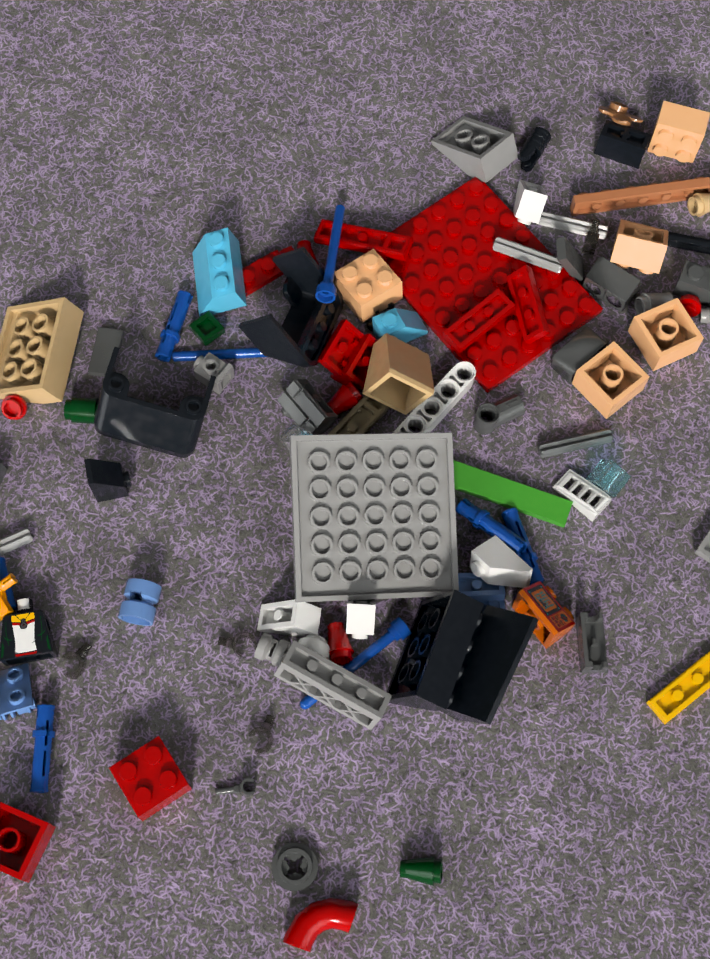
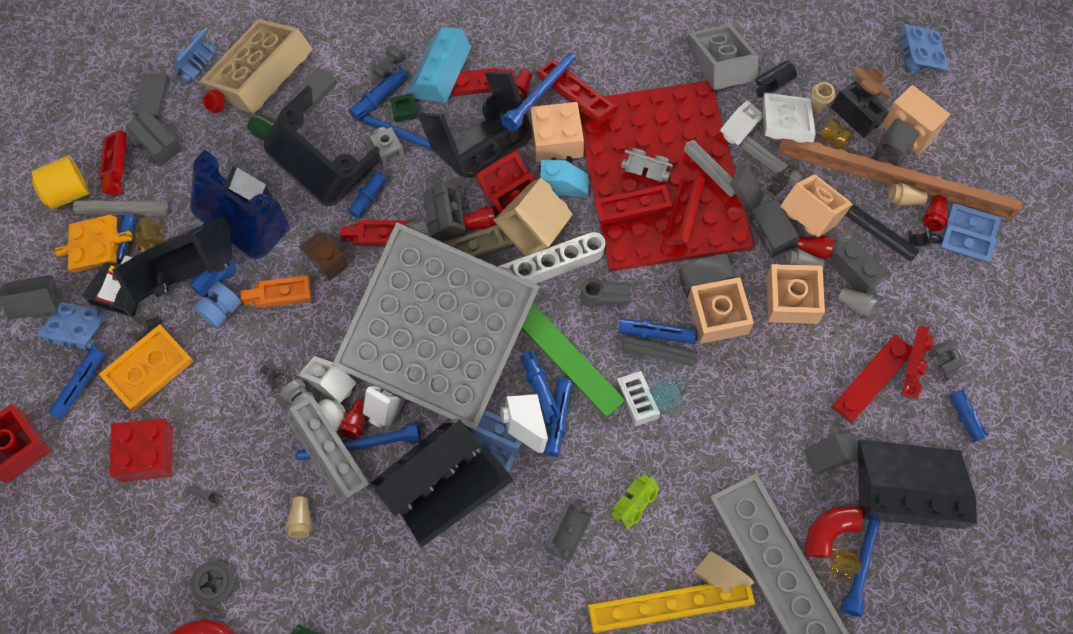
camera: 30 degrees right, 0 degrees up
(24, 569) = (144, 234): none -> clear yellow tile
(77, 572) = (175, 260): none -> black windscreen
(102, 509) = (253, 225): none -> clear blue windscreen
(104, 698) = (146, 368): none -> light orange plate
(116, 576) = (206, 280): none -> blue piece
(167, 282) = (387, 66): none -> dark grey piece
(192, 561) = (278, 292): none -> orange hinge
(214, 503) = (324, 255): none -> reddish brown slope
(222, 428) = (367, 195): none -> blue pin
(253, 459) = (369, 232): none -> red hinge
(265, 728) = (256, 458): clear smoke piece -> none
(342, 763) = (299, 519): none -> tan cone
(460, 278) = (656, 166): none -> light grey hinge
(542, 604) = (540, 482): orange slope -> none
(552, 429) = (655, 330): none -> blue pin
(569, 178) = (788, 118): none -> white plate
(586, 145) = (821, 96): none -> tan cone
(610, 174) = (836, 134): none -> clear yellow wheel
(636, 576) = (630, 510): none -> lime hinge
(642, 66) = (922, 48): none -> medium blue hinge
(658, 282) = (817, 246): none -> red cone
(674, 150) = (899, 136): none -> dark grey piece
(691, 304) = (834, 279): red plate -> none

